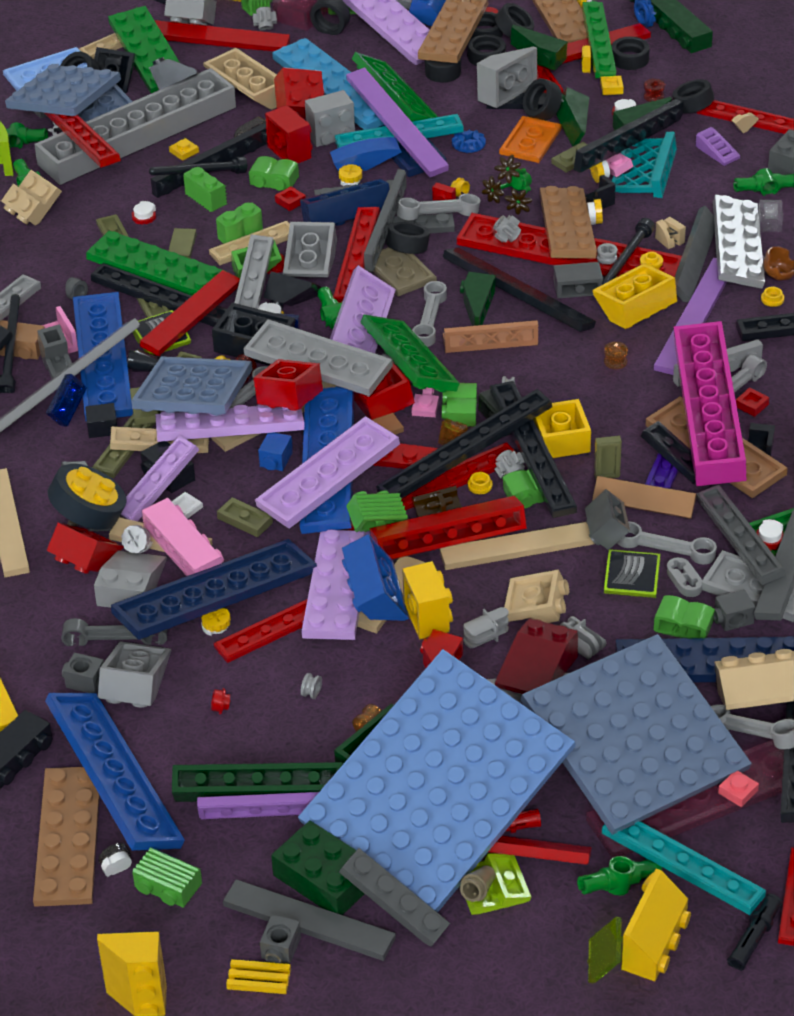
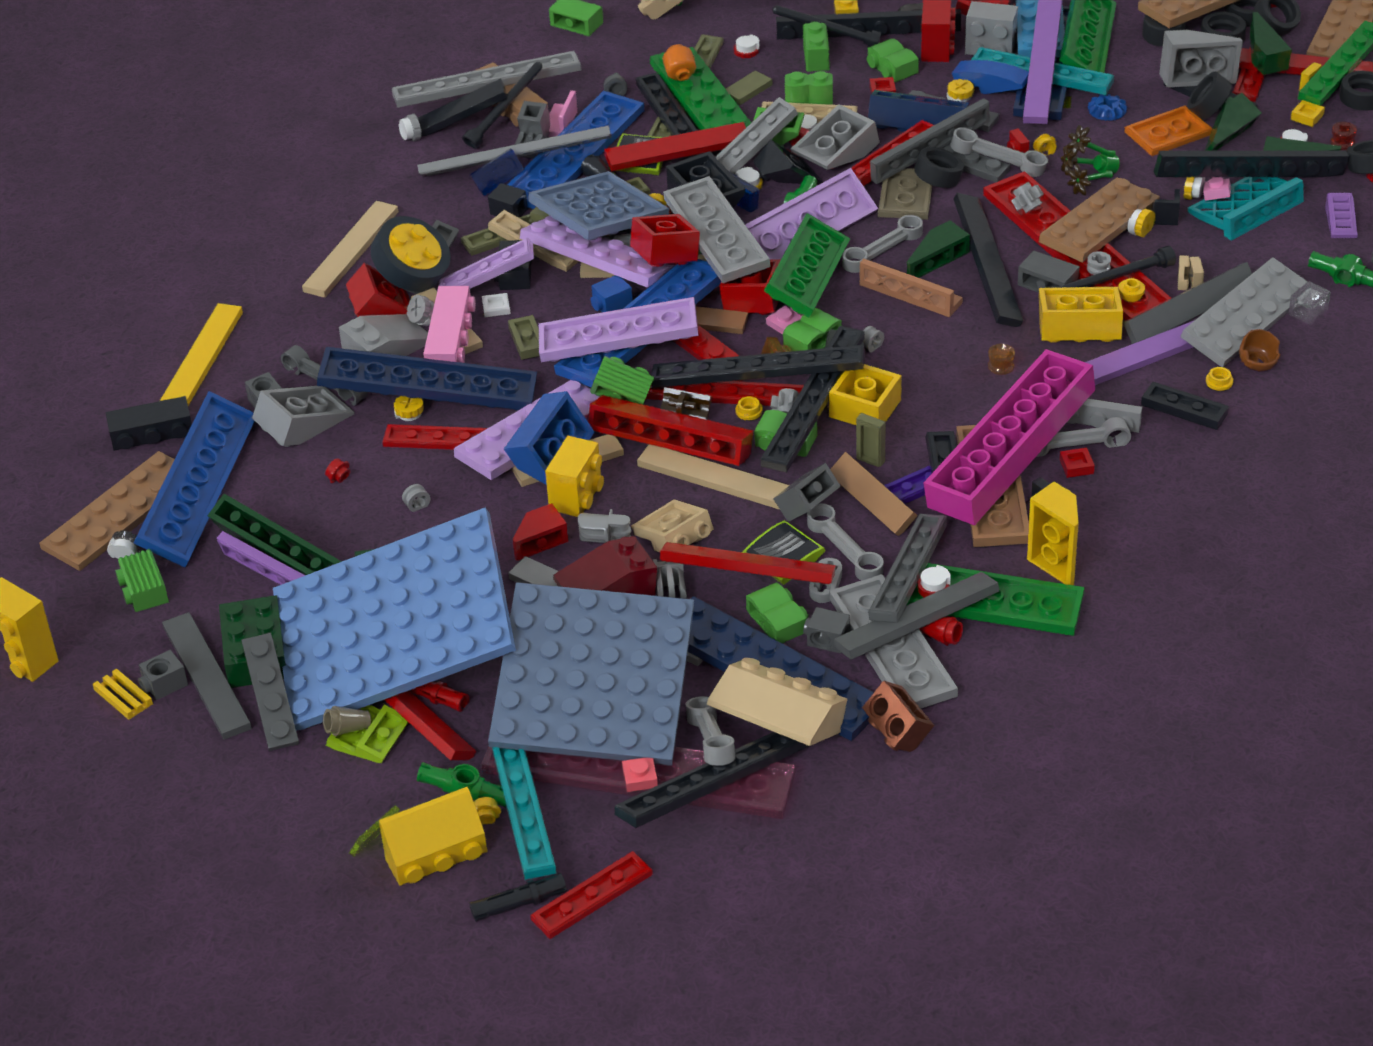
camera: 40 degrees right, 0 degrees up
(126, 245) = (679, 62): none -> orange head
(628, 593) = (747, 563): none -> red tile

